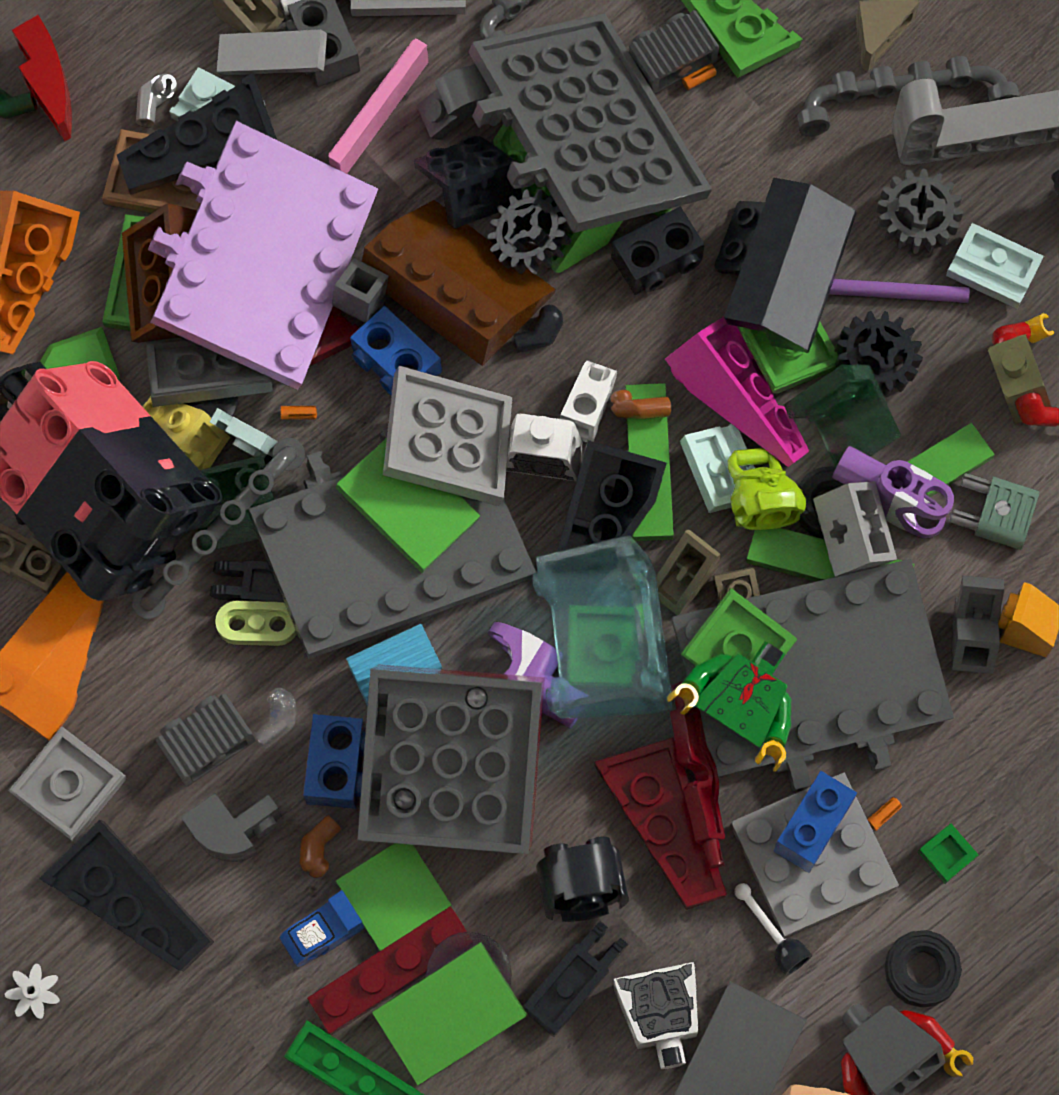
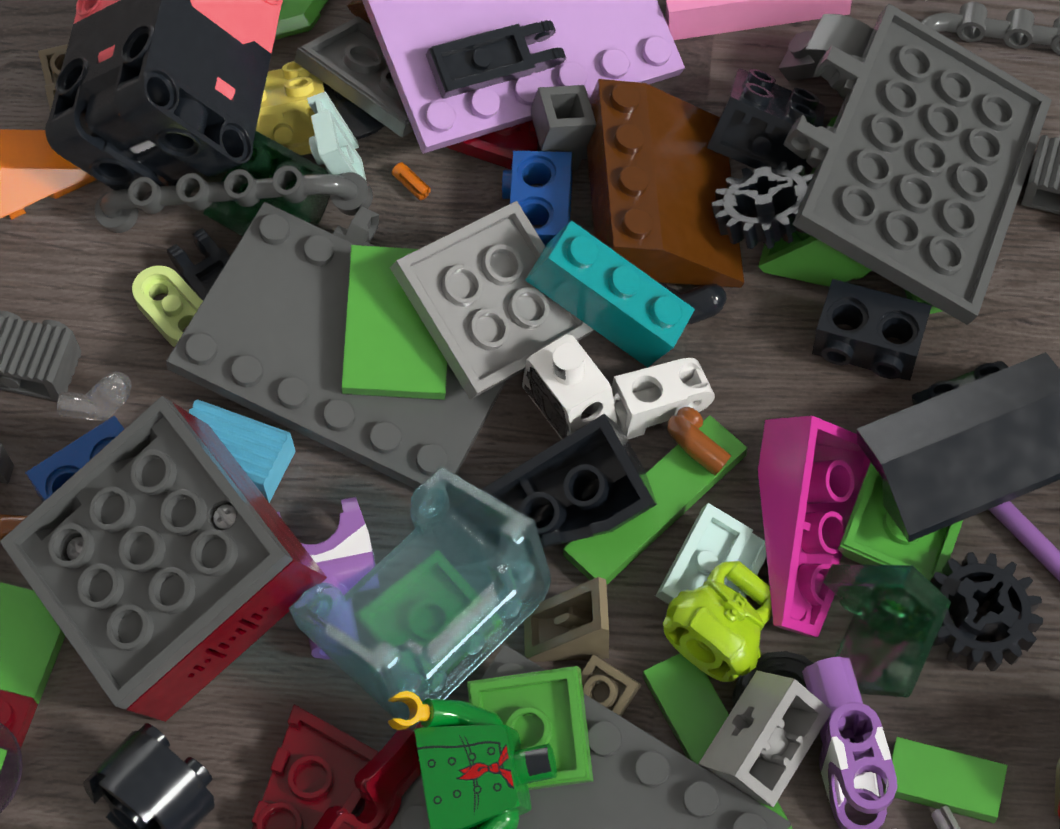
camera: 50 degrees right, 10 degrees down
(284, 294) = (492, 58): none -> black hinge
(506, 370) = (610, 294): none -> teal brick

